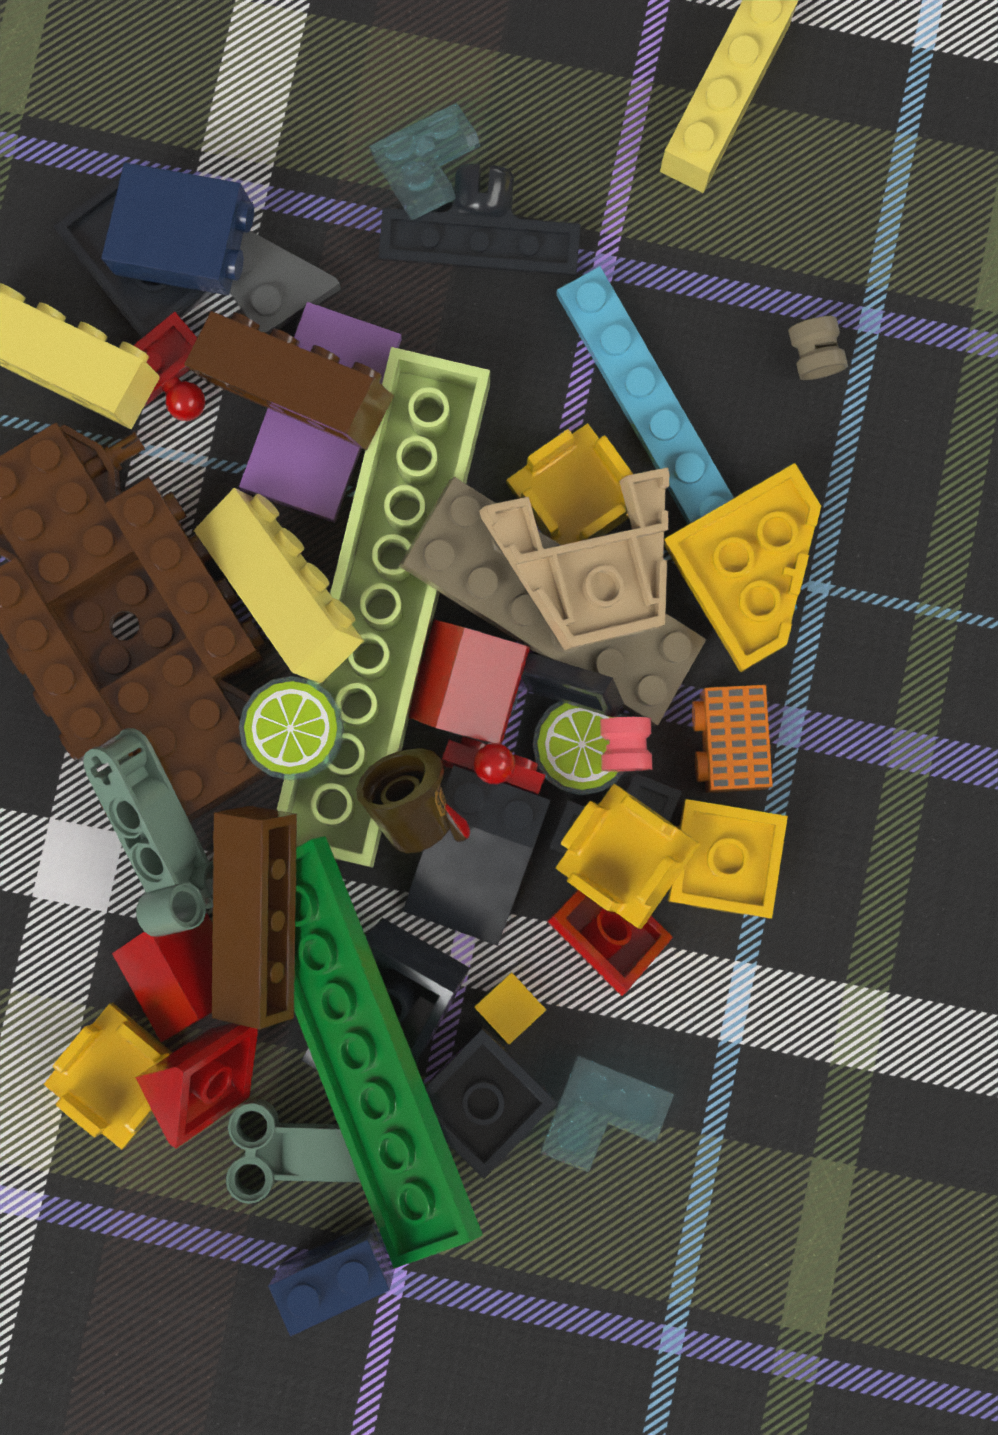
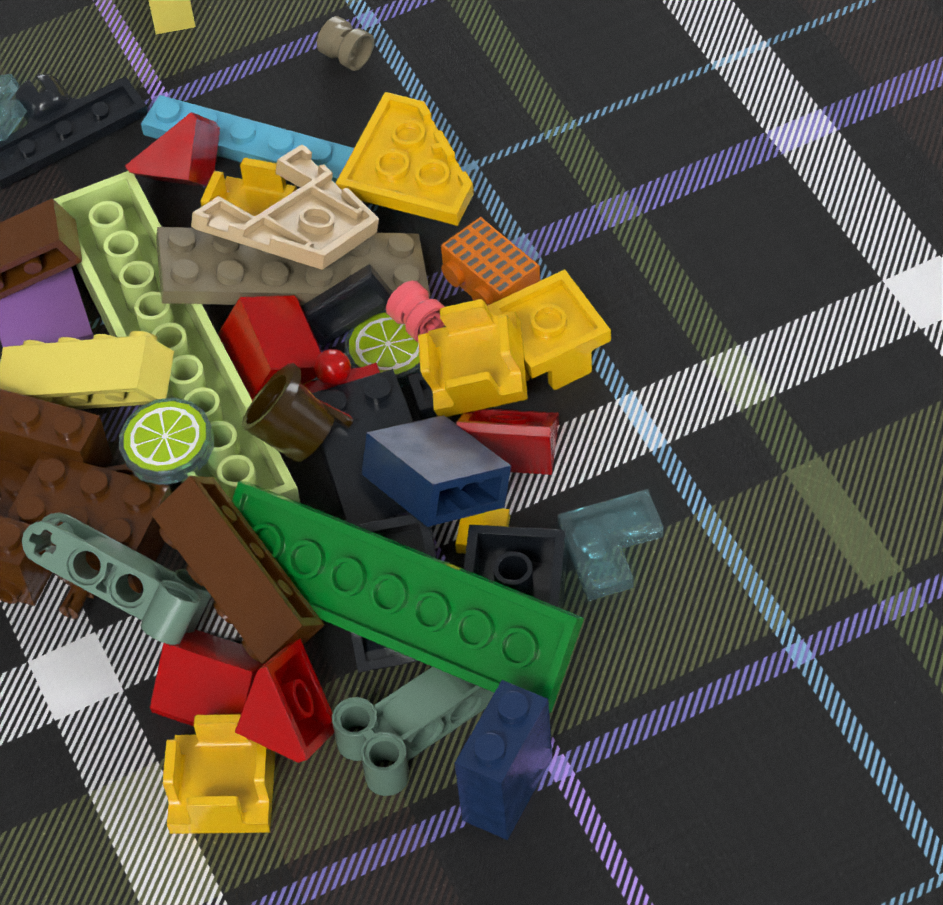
camera: 30 degrees left, 30 degrees down
(493, 954) = (435, 470): none -> dark blue brick
(546, 386) = (182, 154): none -> red slope

